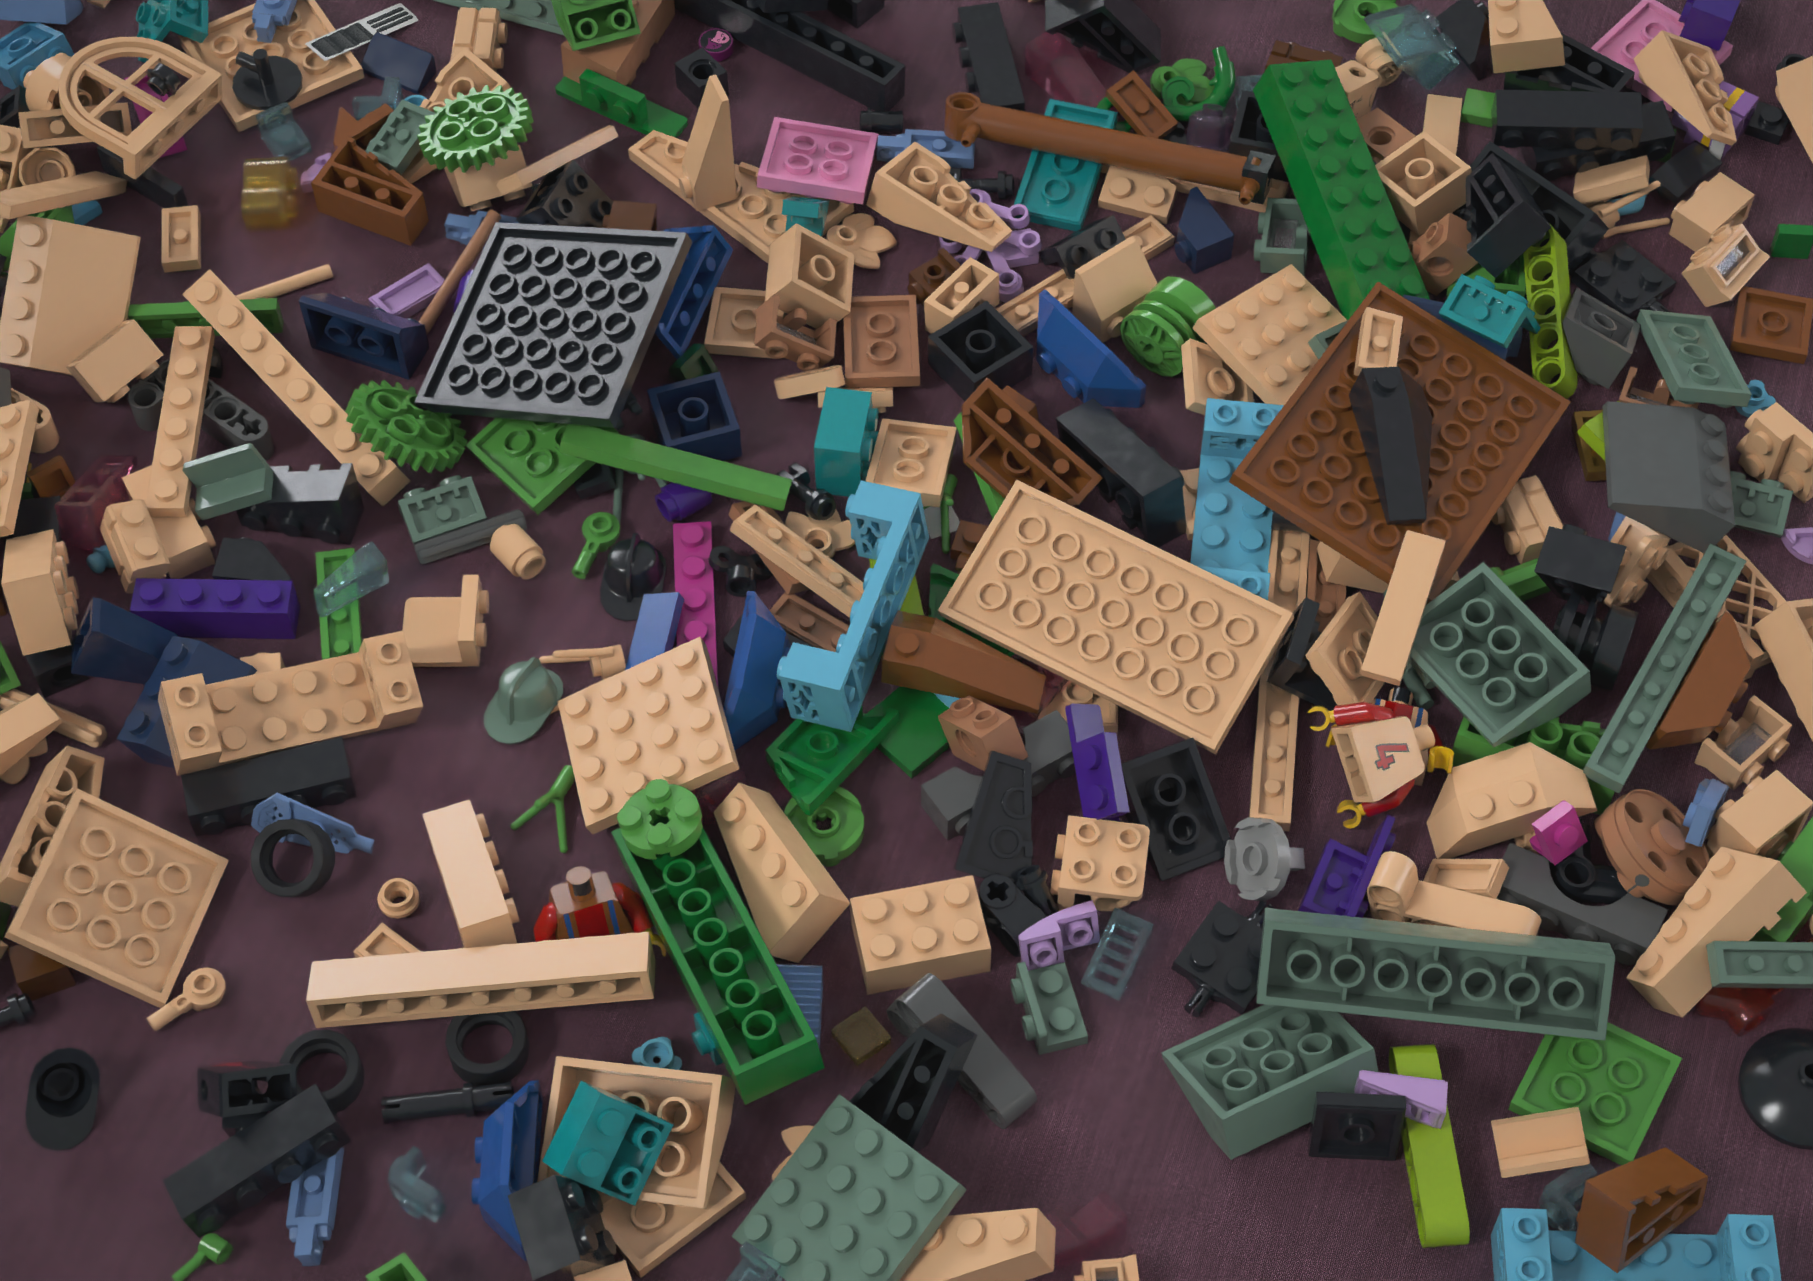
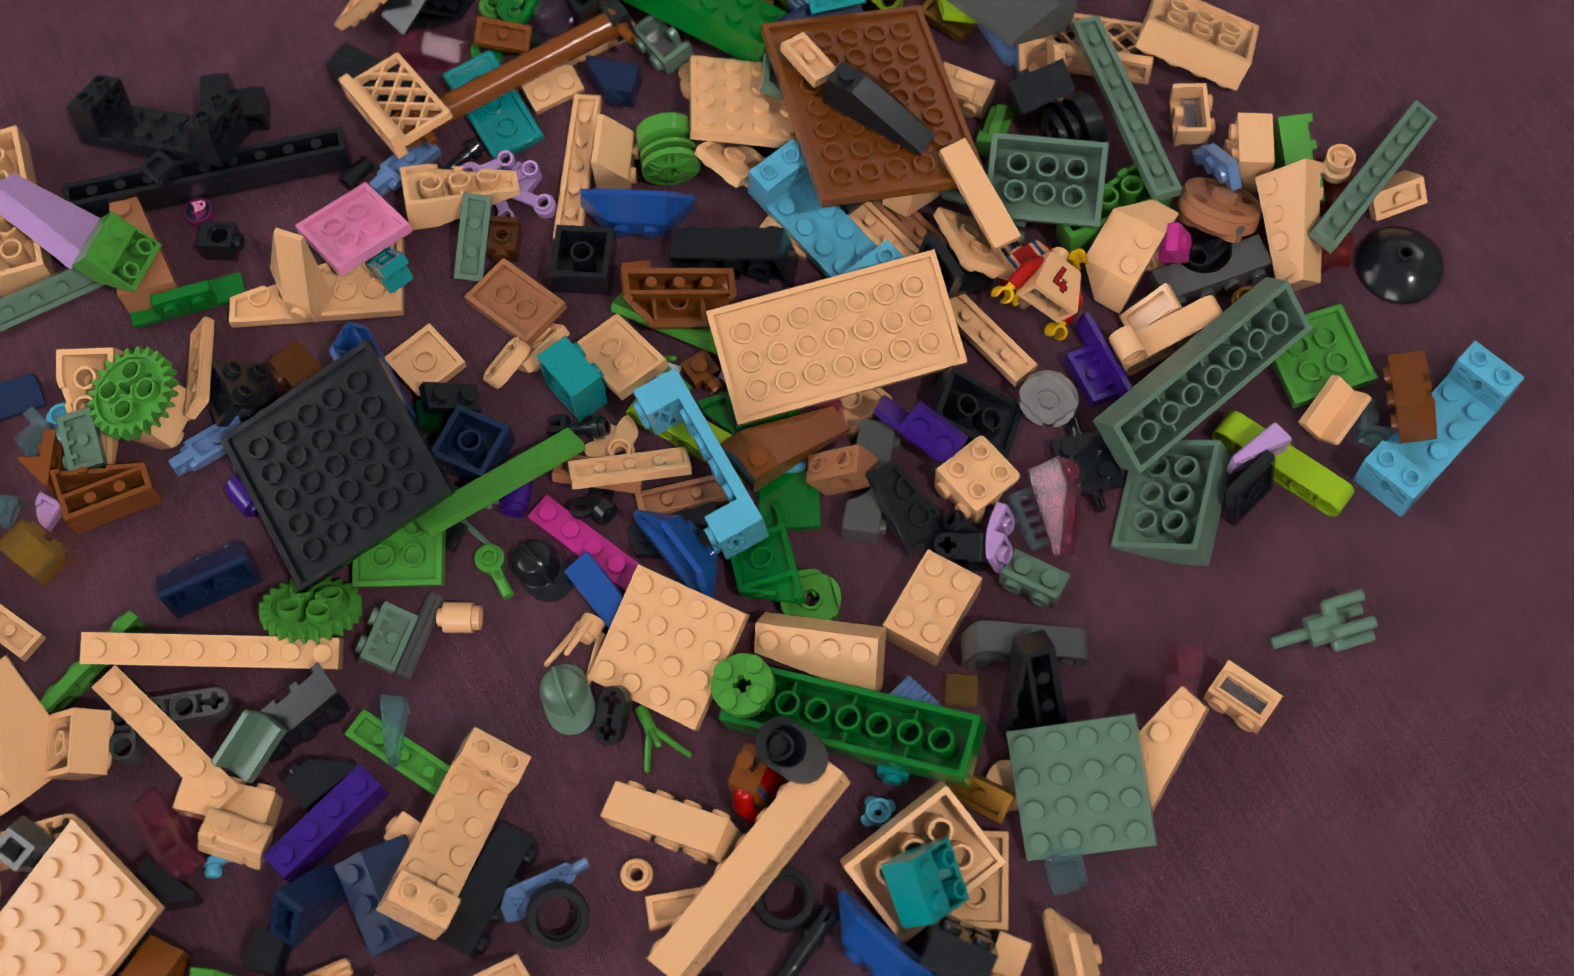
camera: 45 degrees left, 10 degrees up
(39, 591) = (220, 922): light nougat brick -> none
(51, 478) = (127, 849): dark orange tile -> none
(289, 284) = (115, 596): light nougat bar -> none
(409, 293) = (200, 529): lavender tile -> none
(447, 628) = (474, 698): light nougat bracket -> none
(459, 270) = (217, 487): nougat bar -> none
(481, 34) = (45, 334): light nougat brick -> none
(537, 748) = (612, 715): none -> black beam
(624, 905) = (791, 750): none -> black piece
(716, 354) = (444, 397): none -> black plate
(761, 1137) = (985, 797): none -> pearl gold plate
(790, 339) = (467, 347): nougat window -> none
(810, 275) = (438, 302): light nougat brick -> none
(862, 239) = (429, 254): light nougat plate -> none
(907, 252) = (472, 237): none -> sand green plate
(946, 77) = (377, 113): none -> light nougat fence
(960, 293) = (535, 237): light nougat brick -> none
(1083, 245) = (562, 144): black bracket -> none
(1150, 959) = (1058, 497): none -> clear pink slope
(1706, 689) = (1155, 94): dark orange wedge -> none

